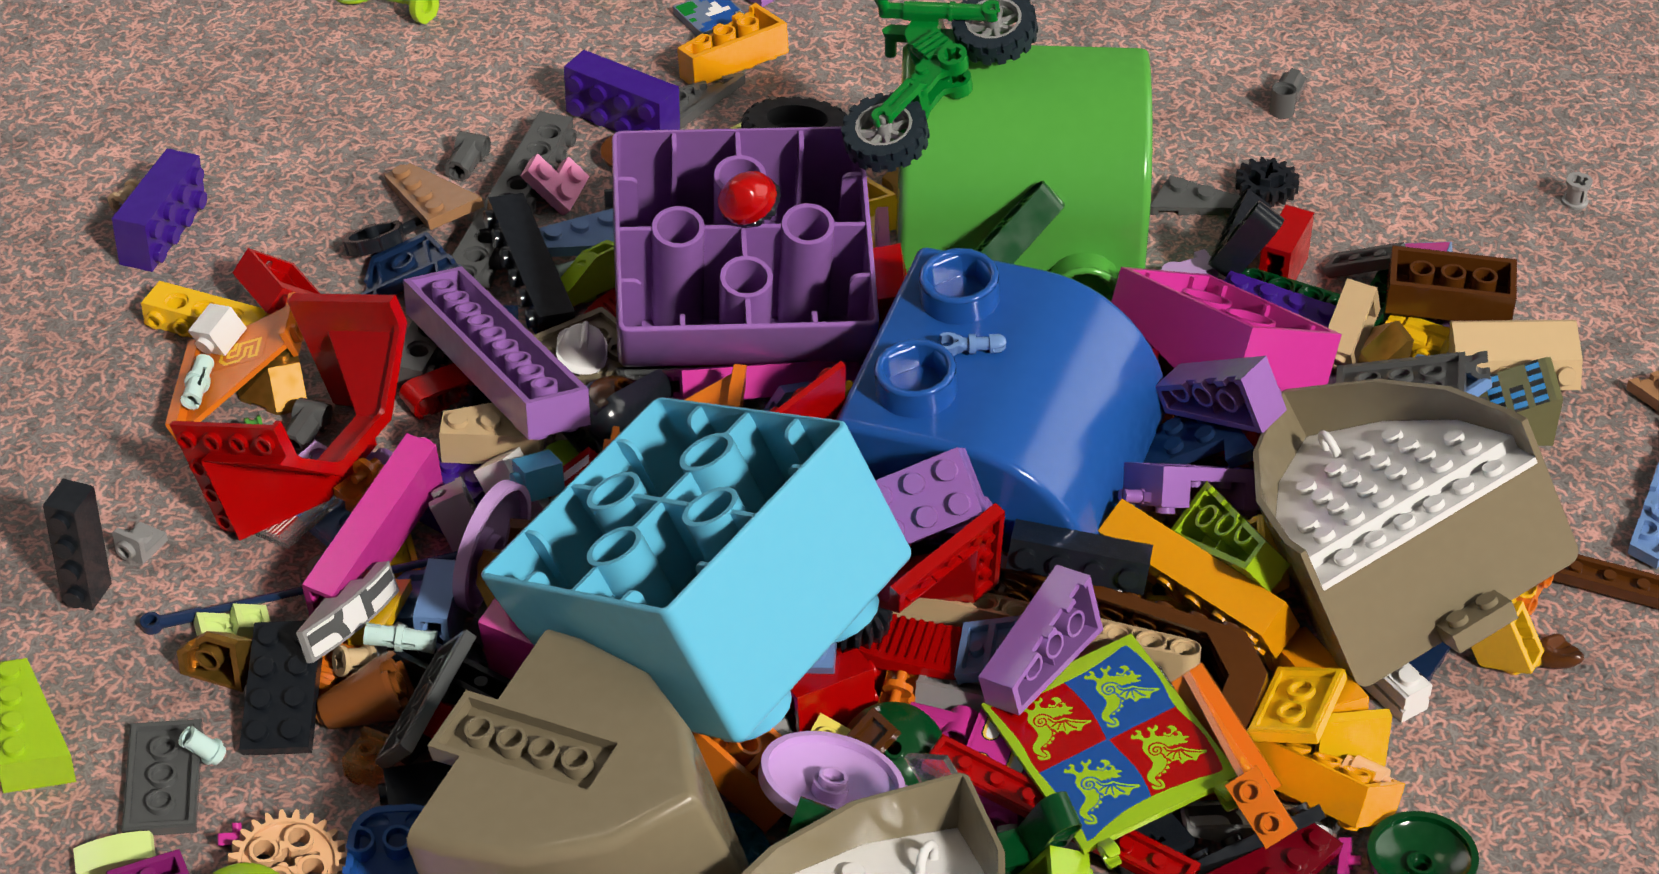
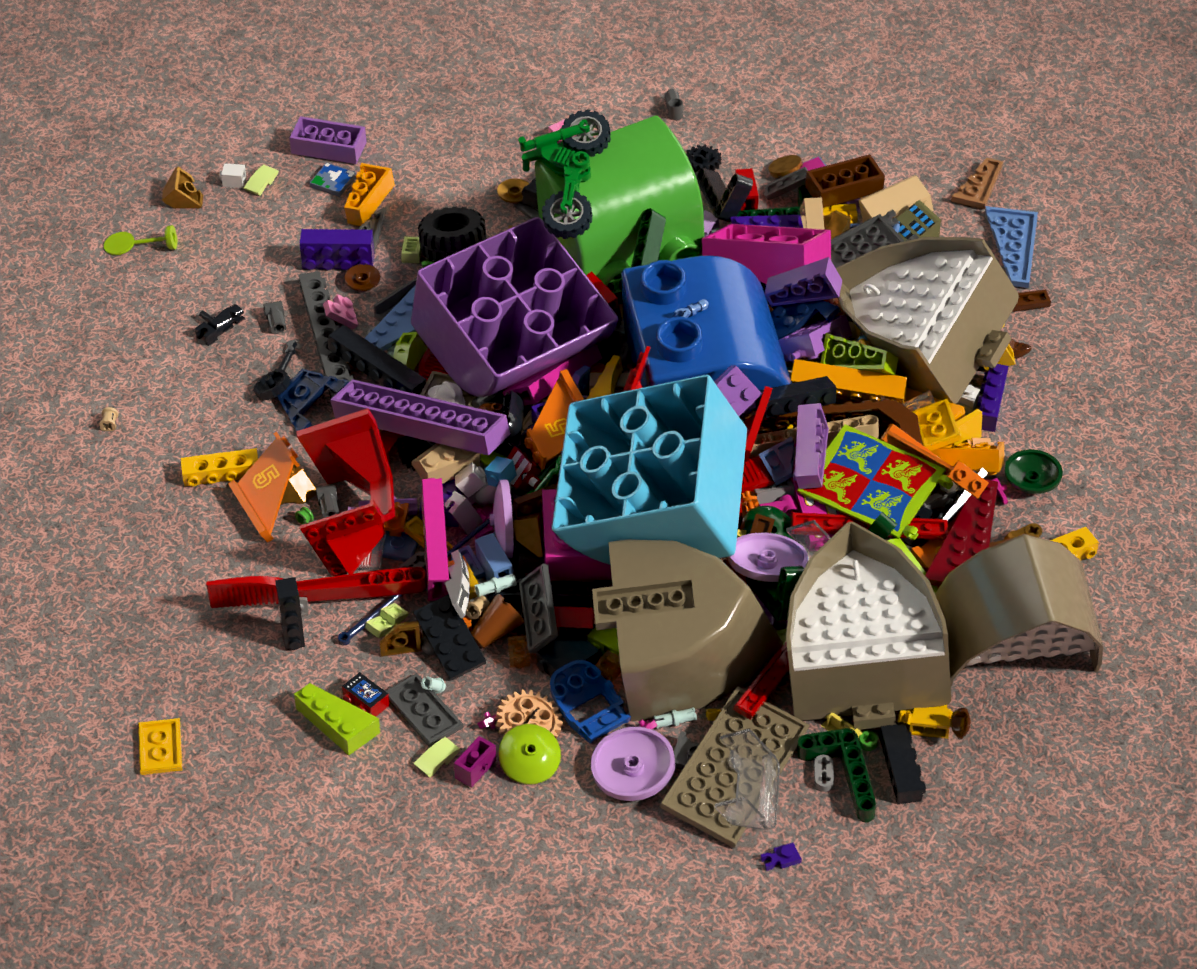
camera: 30 degrees left, 5 degrees up
(96, 717) = (365, 695): none -> brick
(159, 210) = (143, 418): dark purple brick -> none
(197, 381) = (258, 503): light aqua pin -> none
(208, 548) = (262, 589): none -> red piece
(217, 329) = (244, 470): white brick -> none
(271, 281) = (248, 432): red window -> none
(383, 135) = (218, 324): none -> black piece
(430, 196) = (280, 348): medium nougat wing -> none
(749, 199) = (516, 279): red hair -> none
(1293, 655) = (920, 401): none -> clear slope
(1388, 234) = (785, 165): none -> pearl gold tile
(1449, 708) = (992, 396): none -> dark purple brick
(1577, 190) = (855, 102): light grey bush -> none

